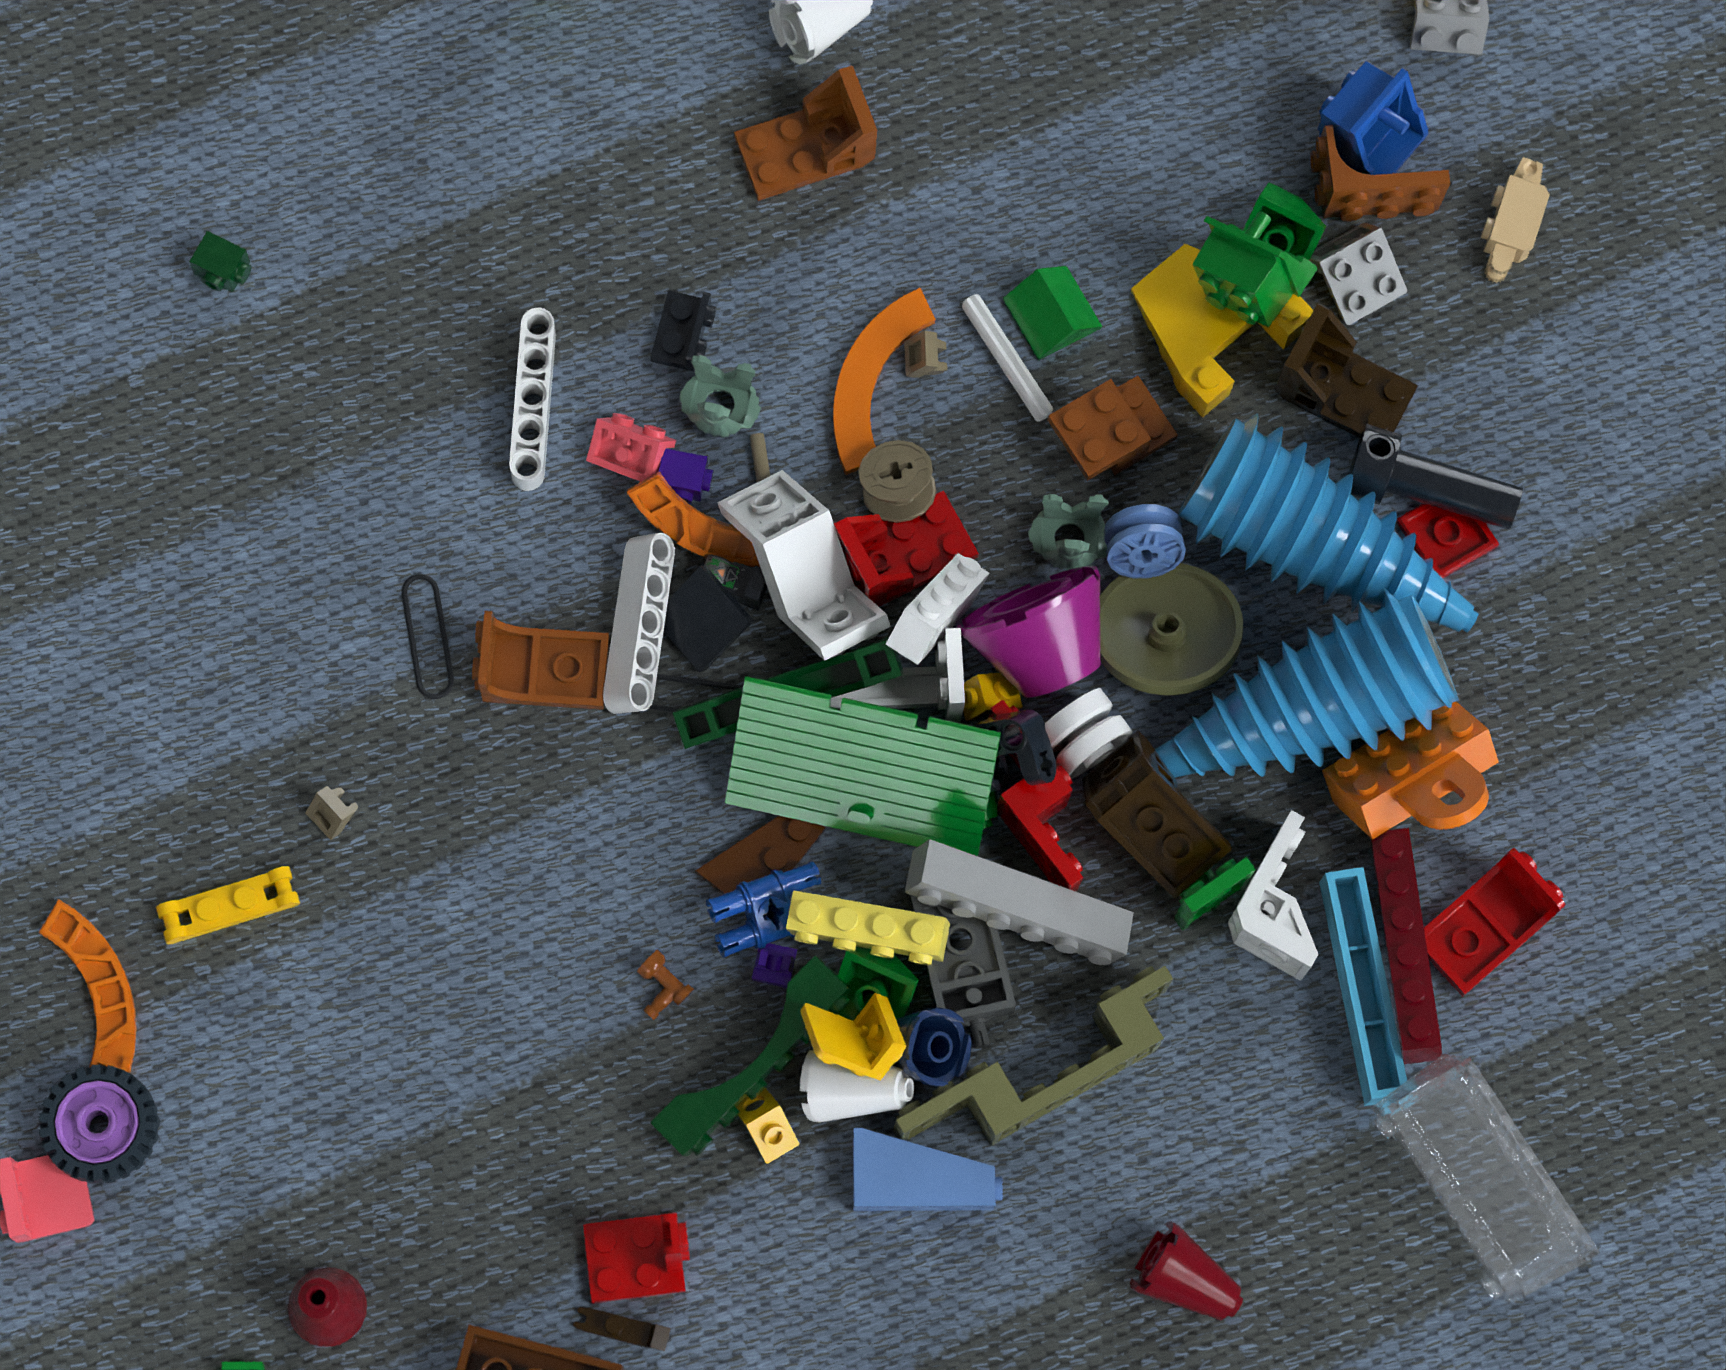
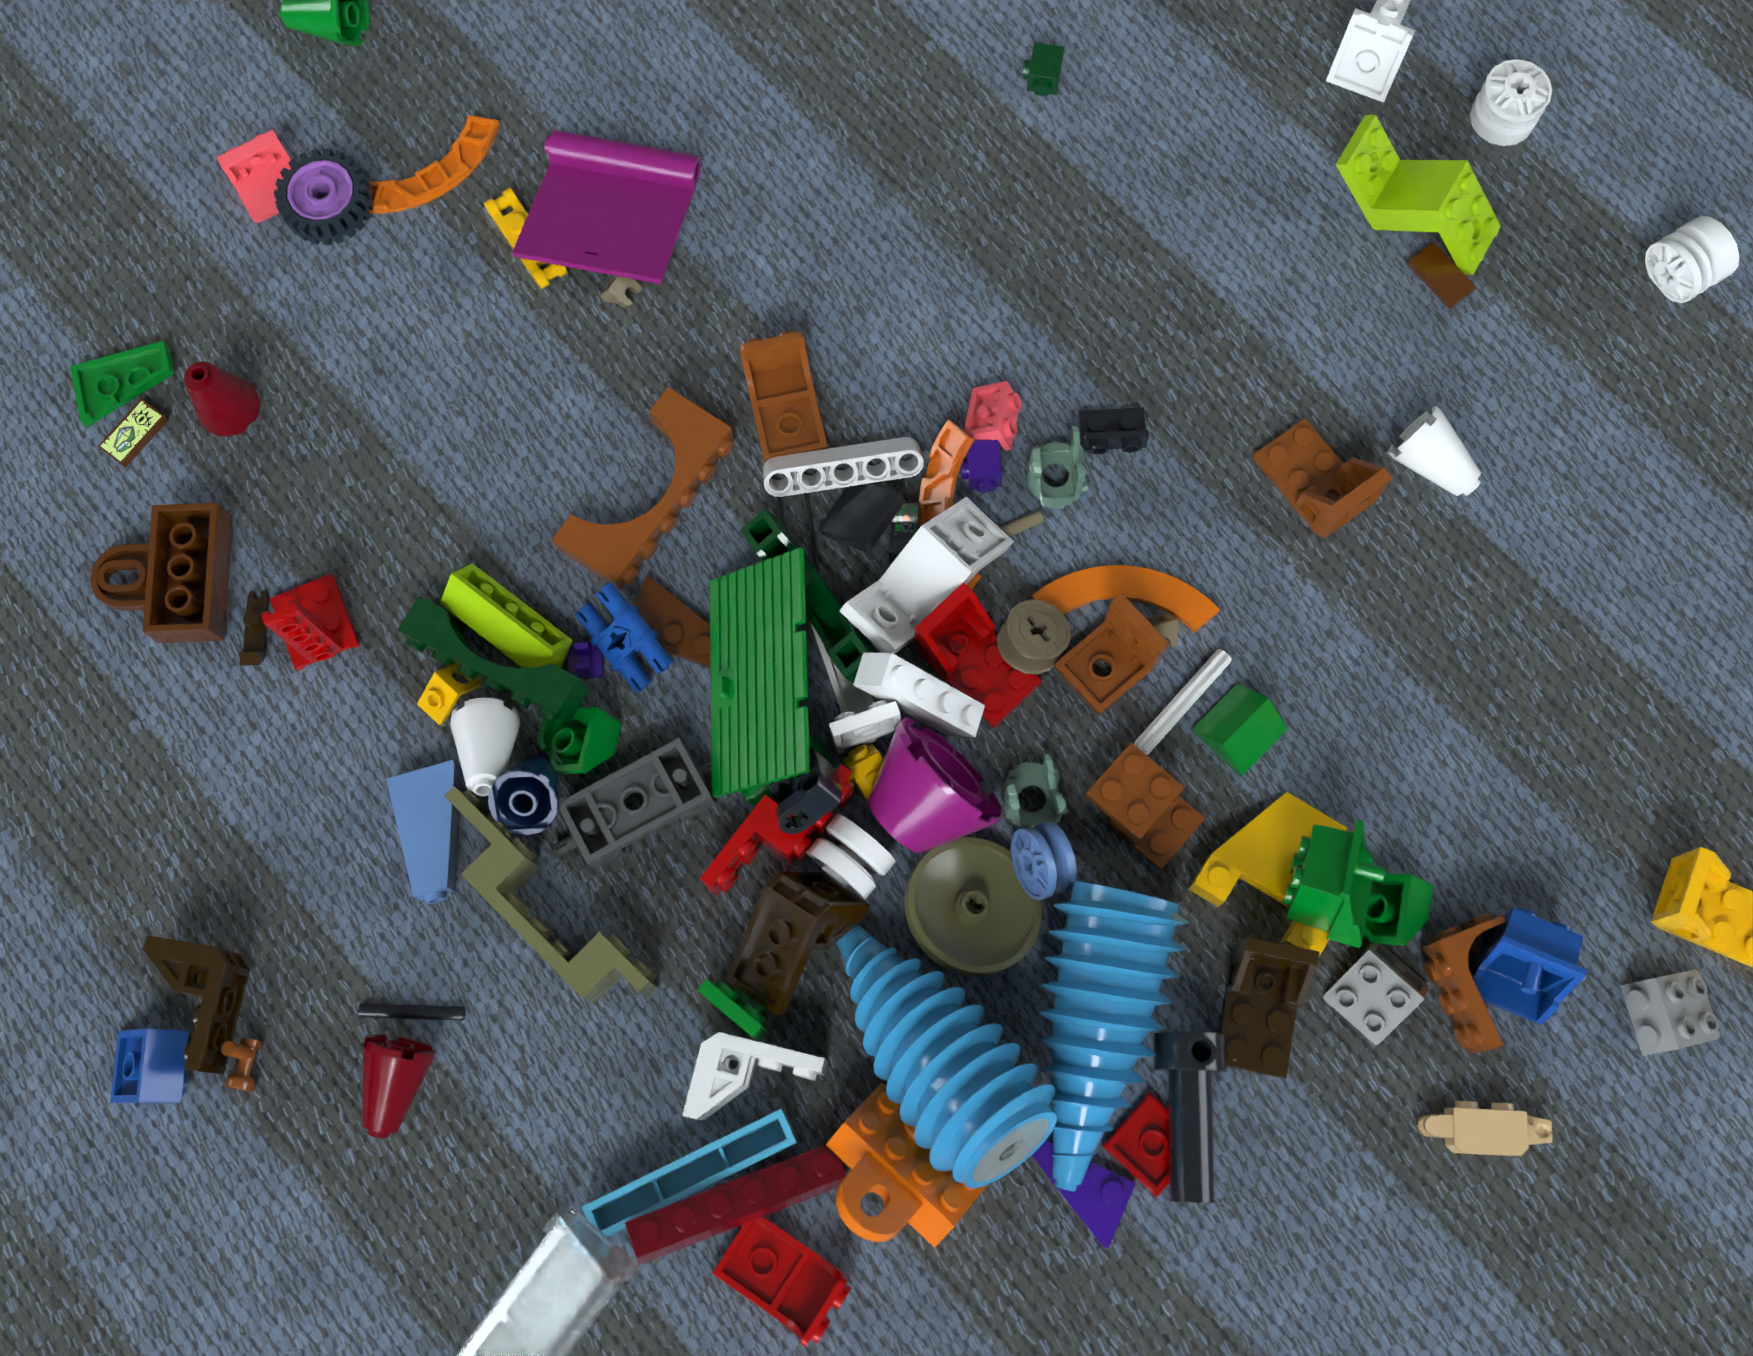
camera: 85 degrees right, 0 degrees up
(229, 795) = (609, 206): none -> magenta door
(412, 639) = (786, 303): black piece -> none
(527, 383) = (1020, 319): white beam -> none
(558, 775) = (618, 549): none -> dark orange arch
(673, 988) = (543, 587): dark orange piece -> none
(708, 1035) = (504, 619): none -> lime brick
(862, 1045) = (508, 726): yellow bracket -> none
(867, 926) = (618, 717): light yellow brick -> none
(938, 390) = (1123, 642): none -> dark orange bracket
(1018, 903) = (676, 840): light grey brick -> none
(1113, 1246) = (400, 1011): none -> black piece
(1492, 598) = (1097, 1200): none -> dark purple wing

